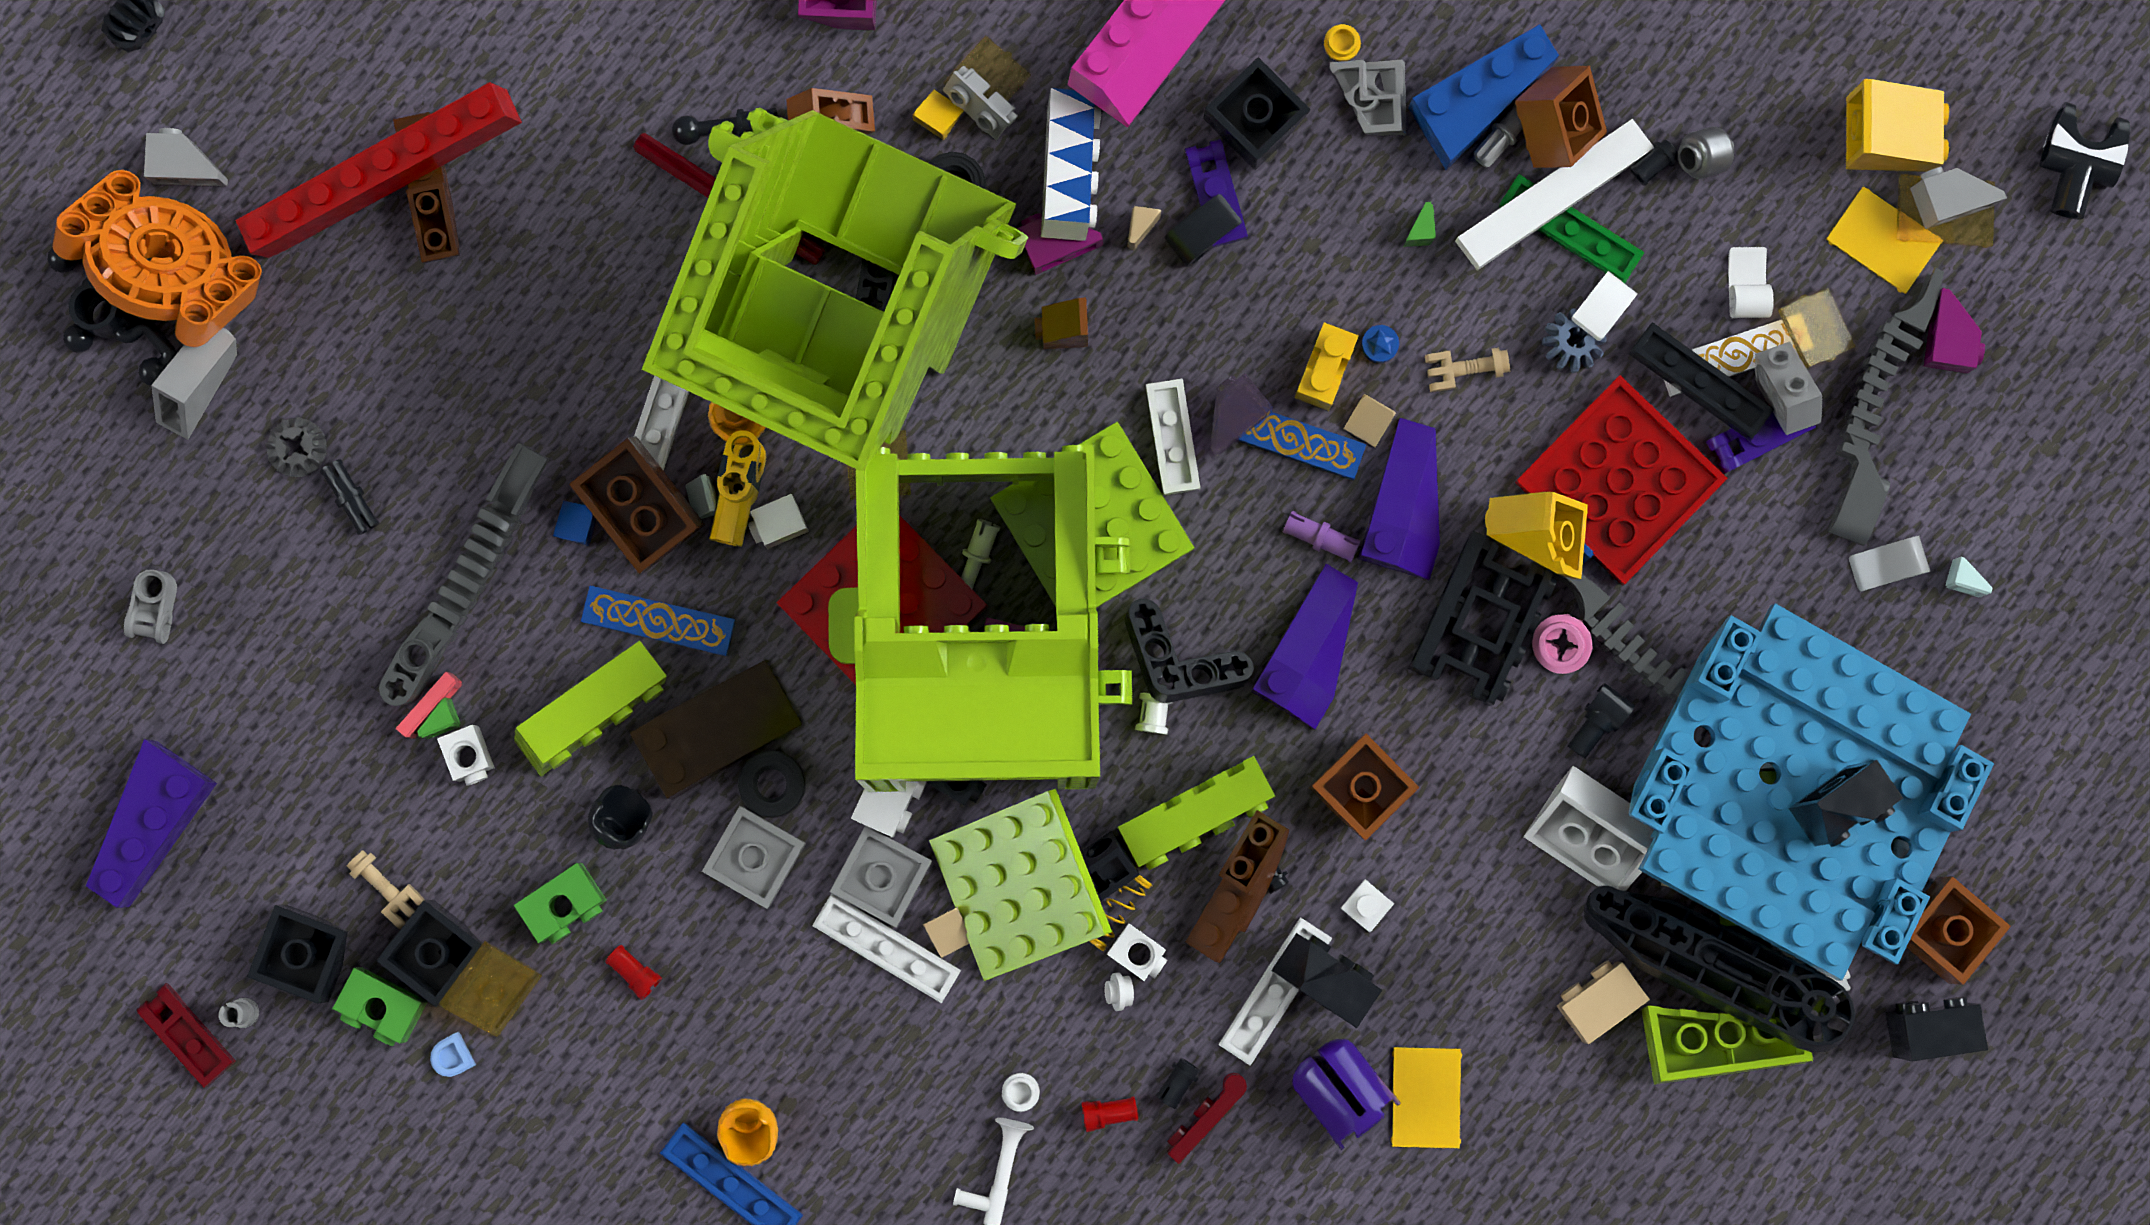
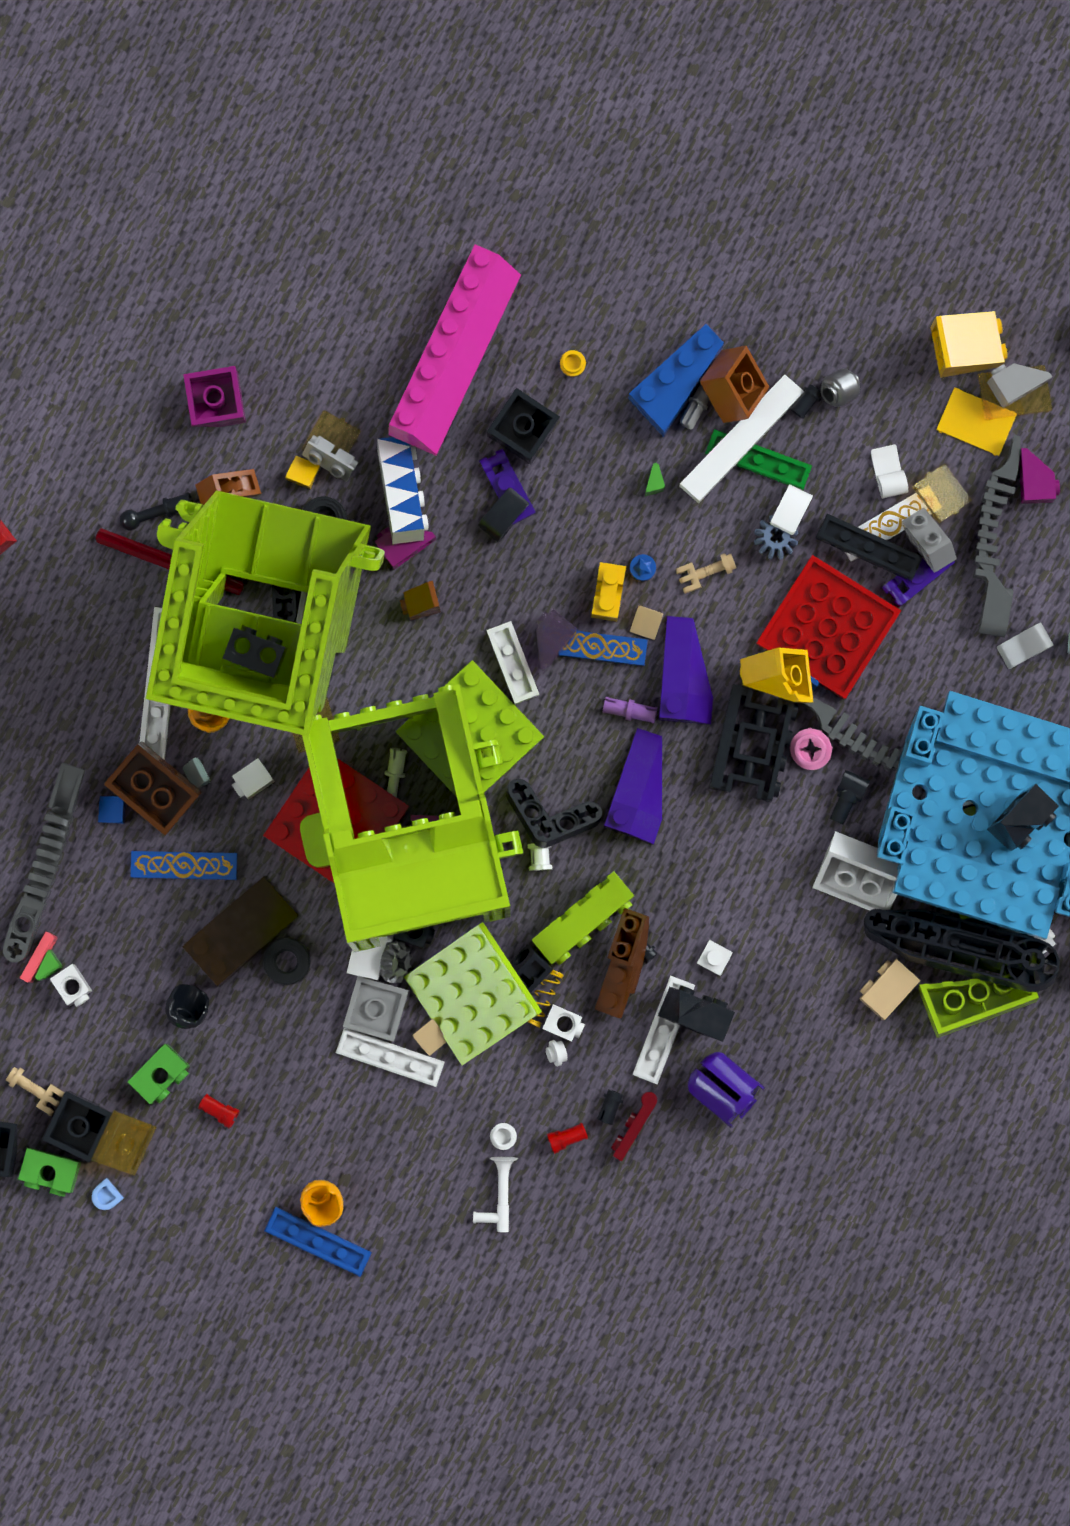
camera: 10 degrees left, 0 degrees up
(589, 708) = (150, 934): lime wedge -> none
(734, 507) = (219, 775): yellow connector -> none
(753, 857) = (285, 1014): light grey plate -> none
(809, 346) = (253, 658): none -> black brick
(913, 814) = (388, 964): none -> flat silver gear
(1141, 223) = (459, 519): tan slope -> none
(1364, 787) = (694, 876): dark orange slope -> none
(1377, 110) = (606, 405): light grey slope -> none
(1429, 1096) = (784, 1079): yellow piece -> none

